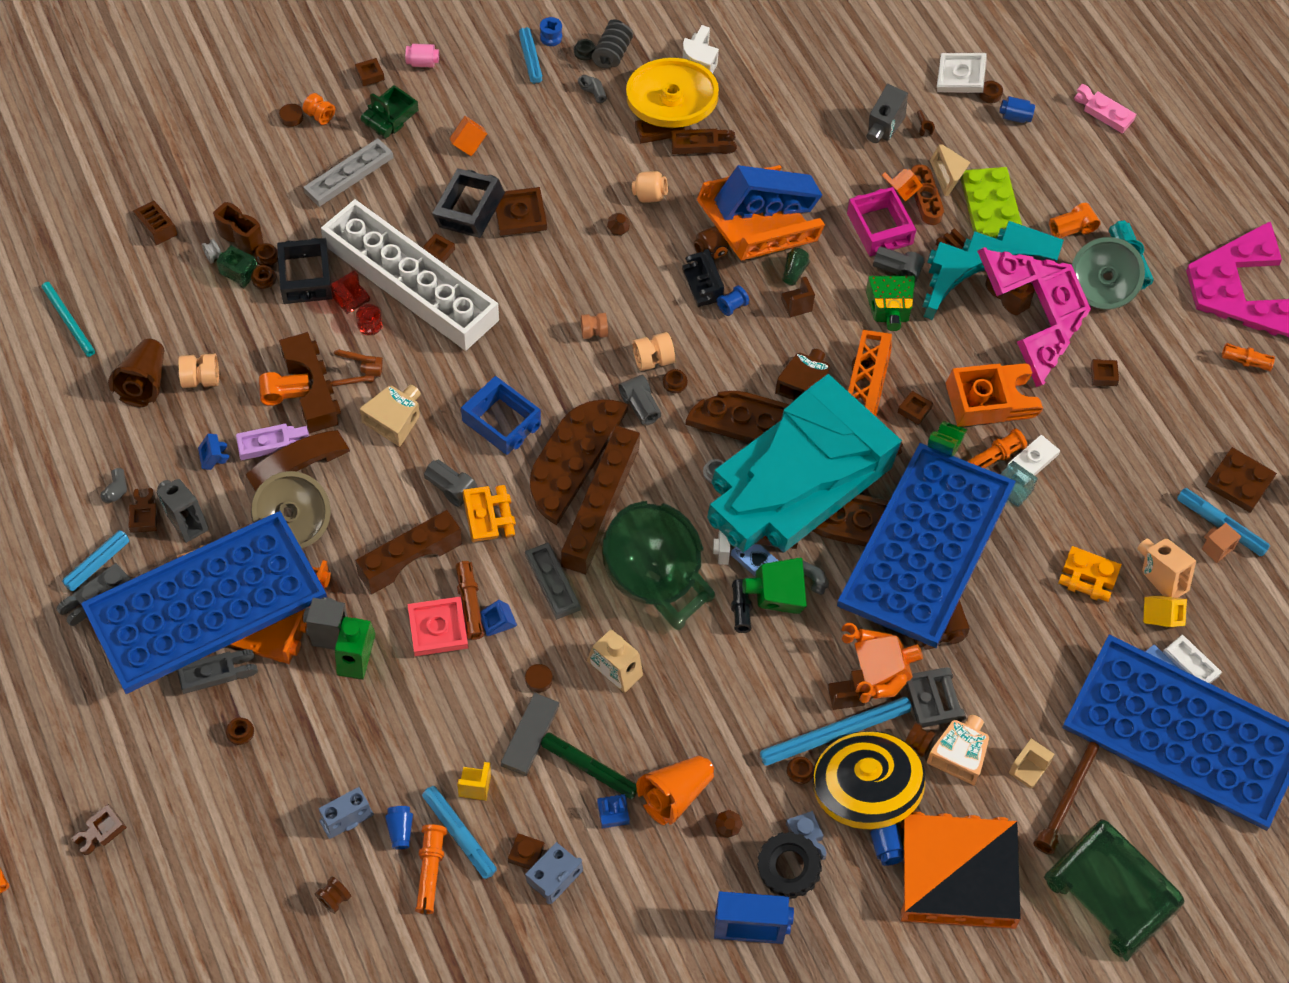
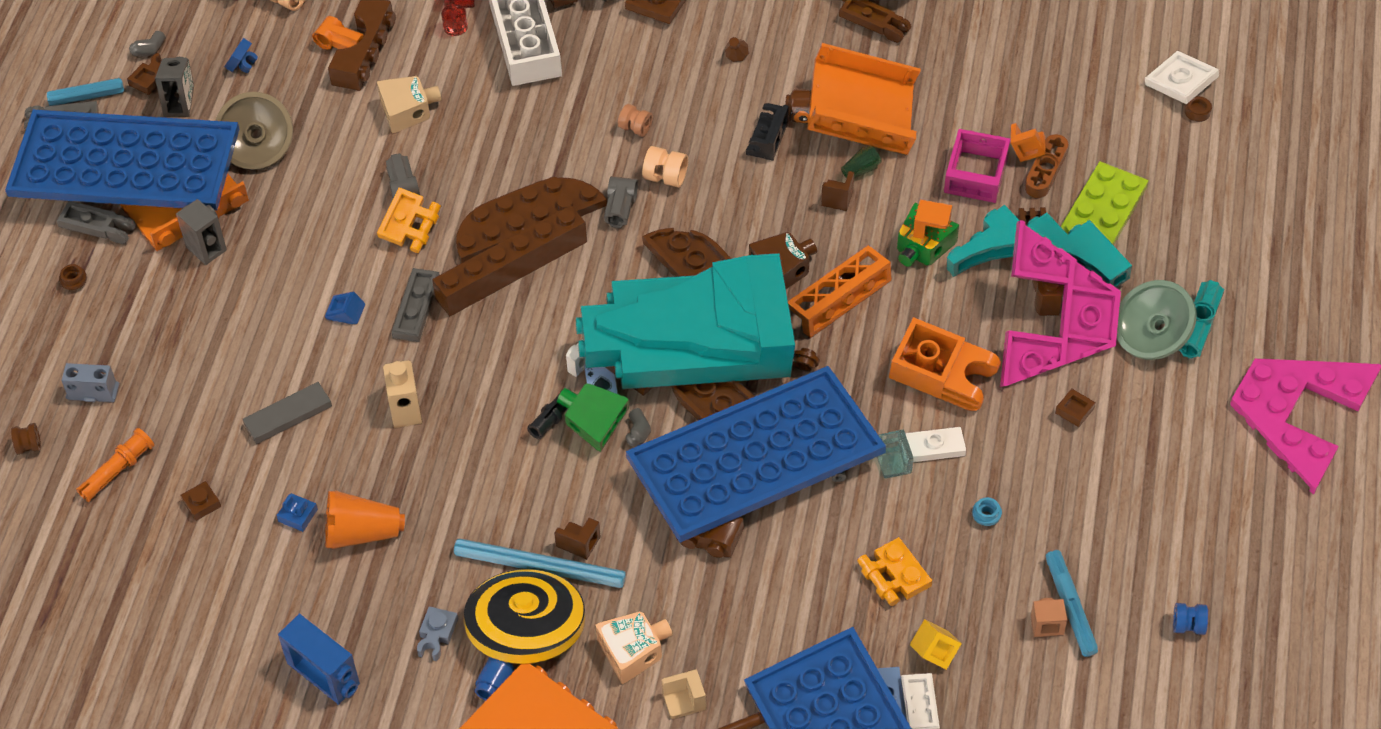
camera: 40 degrees right, 5 degrees down
(268, 440) = (293, 72): lavender hinge -> none
(298, 456) = (310, 94): reddish brown slope -> none
(354, 640) = (208, 261): green torso -> none
(369, 365) = (421, 55): dark orange plant -> none
(384, 563) = (348, 213): reddish brown arch -> none
(399, 826) = (121, 419): blue cone -> none
(437, 626) = (290, 286): coral plate -> none
(459, 832) = (163, 453): dark azure axle -> none
(468, 591) = (339, 272): dark orange pin -> none
(475, 782) = (209, 422): yellow panel -> none
(488, 396) = (499, 129): blue window -> none
(538, 678) = (334, 373): reddish brown tile -> none
(554, 872) = (204, 528): sand blue piece -> none
(589, 765) = (309, 462): dark green axle -> none
(650, 186) = (789, 31): light nougat head -> none
(656, 559) = (499, 325): clear green windscreen -> none
(675, 381) = (665, 202): reddish brown plate -> none
(728, 823) = (379, 580): reddish brown rock -> none
(733, 300) = (777, 162): blue bush -> none
(766, 192) = (884, 84): blue wedge -> none
(767, 864) = (408, 656): black tyre -> none
(800, 770) = (477, 573): reddish brown plate -> none
(882, 661) = (623, 529): orange torso -> none
(887, 114) = (1066, 76): dark grey torso -> none
(897, 280) = (932, 215): none -> orange panel
(898, 263) = (964, 213): dark grey piece -> none
(915, 407) = (861, 339): reddish brown plate -> none
(920, 739) = (600, 609): reddish brown wheel -> none
(926, 699) = (642, 582): dark grey plate -> none
(929, 125) = (1103, 104): reddish brown hand -> none
(947, 438) = (867, 381): green slope -> none
(948, 168) = (1089, 153): tan slope -> none
(1000, 449) = (907, 418): orange pin -> none
(1017, 109) = (1206, 135): blue brick -> none
(1081, 219) = (1180, 262): orange piece -> none
(1105, 109) = (1302, 179): bright pink plate -> none
(1114, 483) = (987, 505): none -> dark azure plate
(1167, 567) = (969, 594): light nougat torso -> none
(1241, 480) = (1127, 577): reddish brown plate -> none
(1248, 357) = (1238, 472): orange pin -> none

